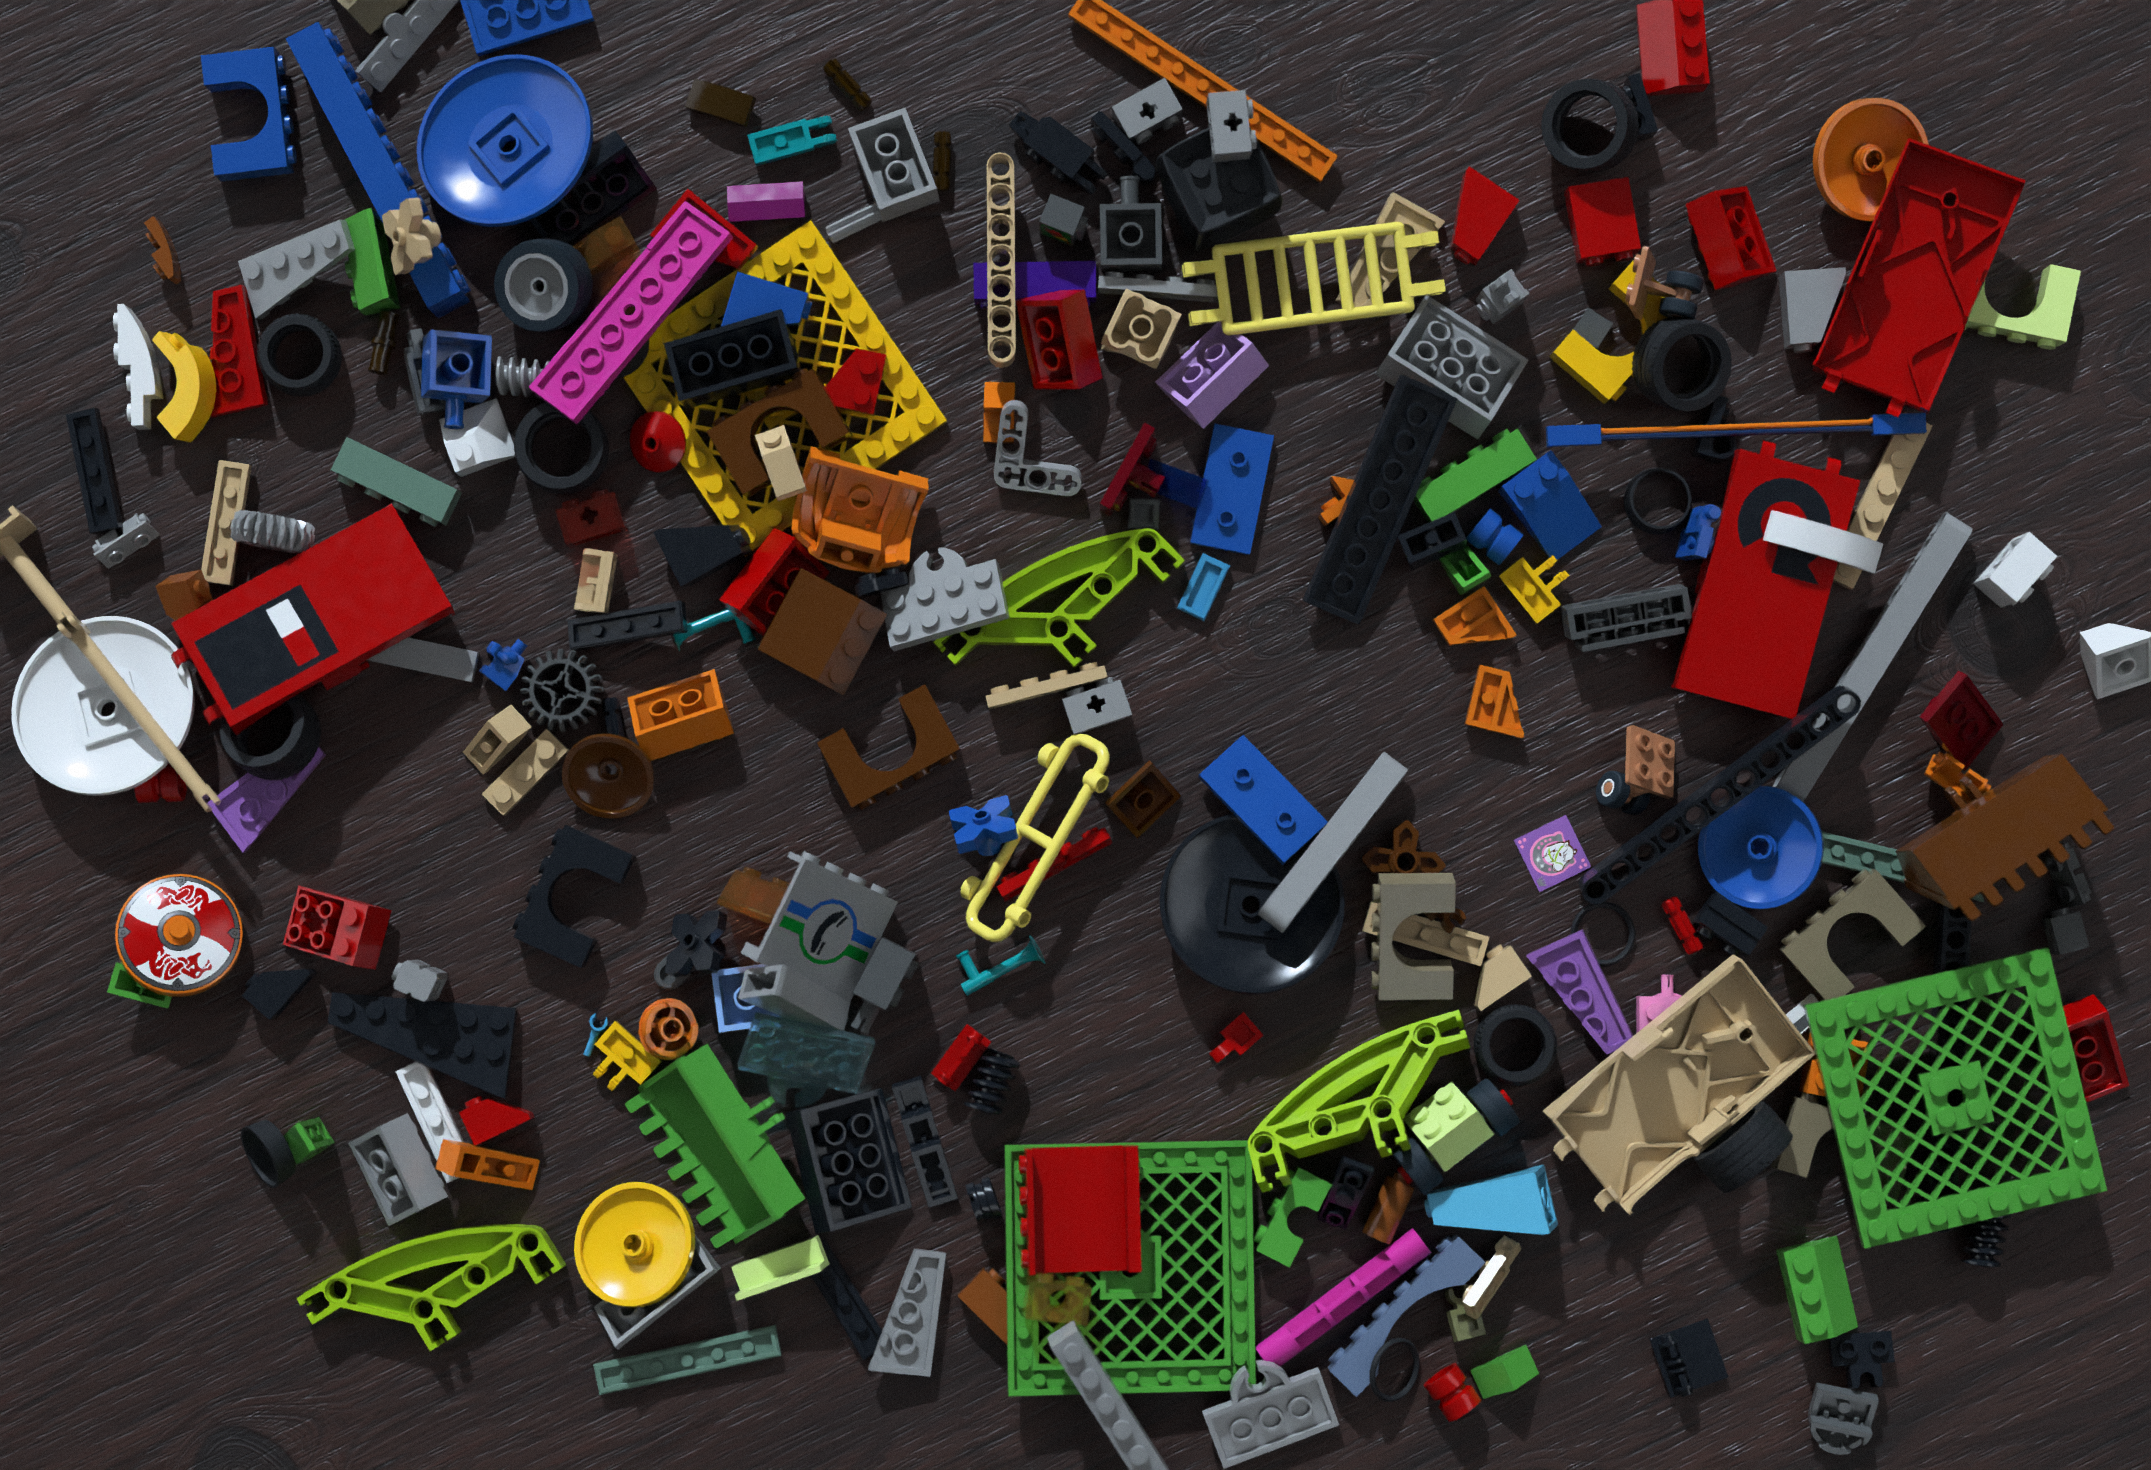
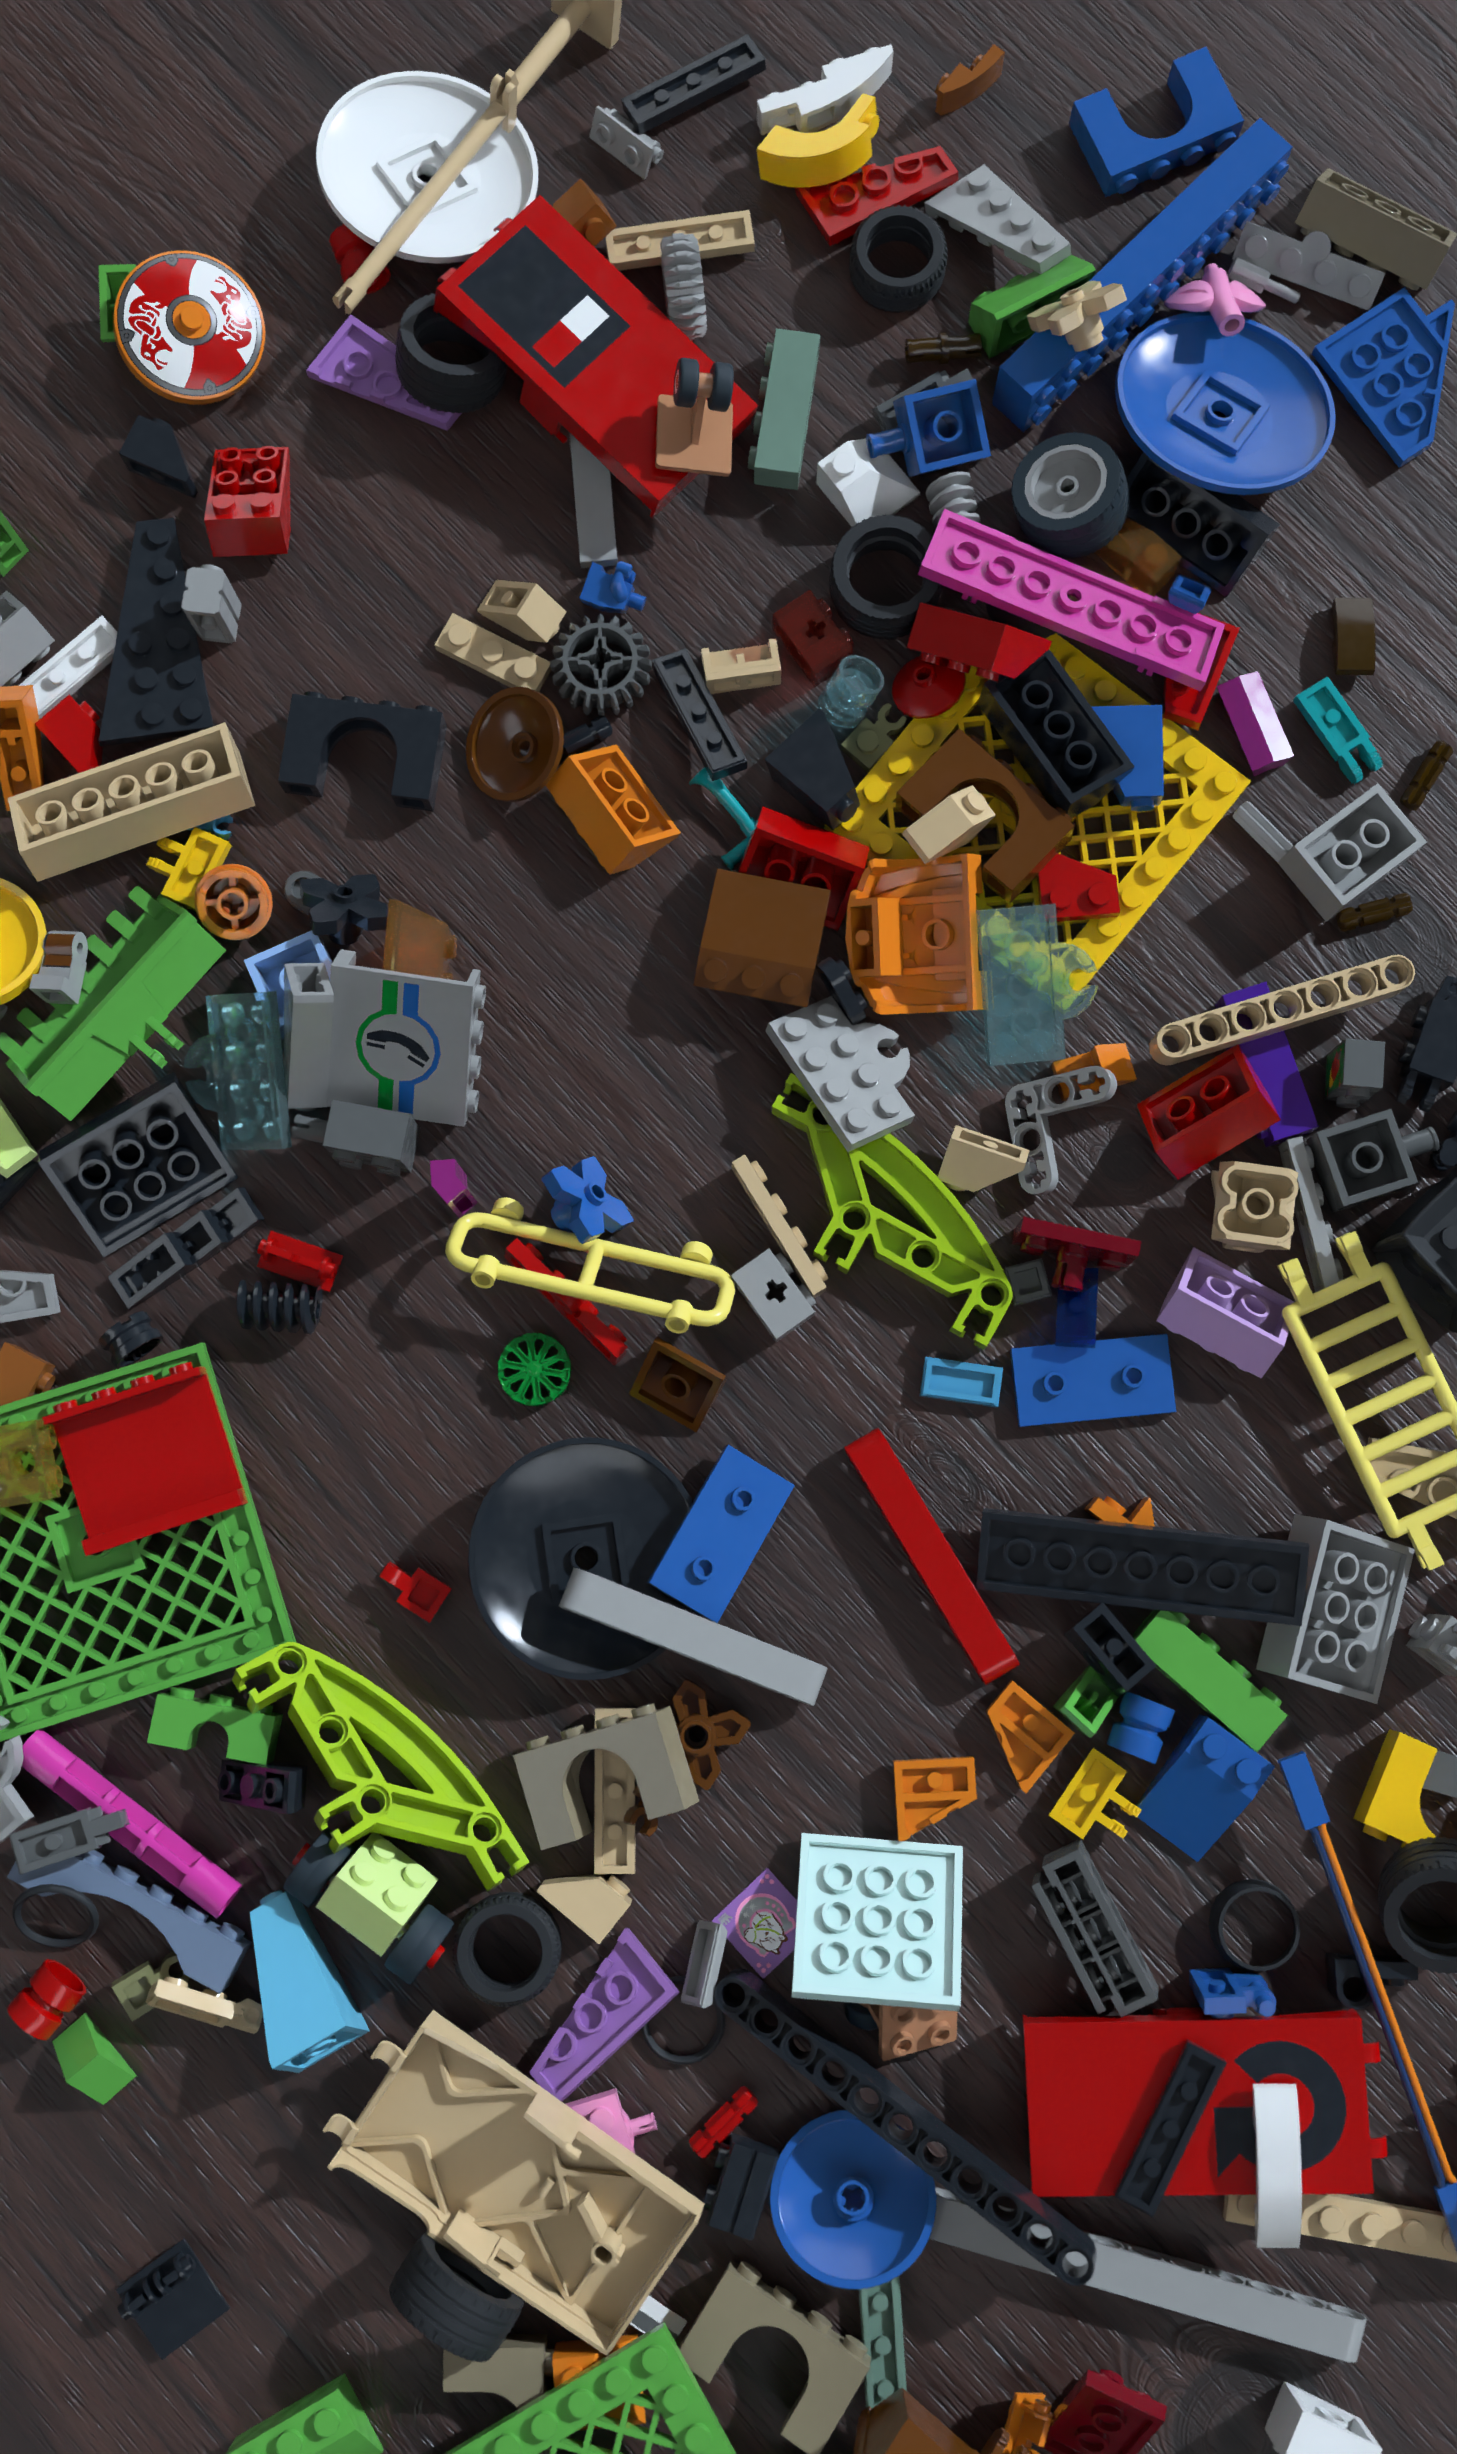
camera: 80 degrees right, 5 degrees down
(400, 557) = (694, 431): none -> nougat plate
(404, 77) = (1258, 279): none -> light grey axle
(413, 115) = (1218, 296): none -> bright pink plant
(562, 1086) = (130, 802): none -> tan brick
(643, 397) = (973, 643): none -> red slope
(647, 503) = (851, 691): none -> clear light blue wheel
(649, 218) = (1188, 594): none -> blue tile
(675, 1177) = (61, 967): none -> light grey leg
(687, 499) = (871, 740): none -> olive plate
(864, 783) = (668, 1111): reddish brown arch -> none
(920, 441) = (1027, 984): none -> clear light blue plate
(943, 924) = (451, 1184): none -> magenta piece
(978, 981) = (398, 1253): teal piece -> none
(1043, 521) = (979, 1160): none -> tan slope
(1097, 903) = (534, 1369): none -> green wheel
(1324, 649) = (931, 1556): none -> red beam
(1341, 1344) = (64, 1837): none -> dark grey hinge
(1388, 1208) = (255, 1846): dark orange brick -> none
(1568, 905) = (704, 1964): none -> light grey tile
(1574, 769) = (879, 1922): none -> light aqua plate
(1775, 607) = (1169, 2128): none -> black tile

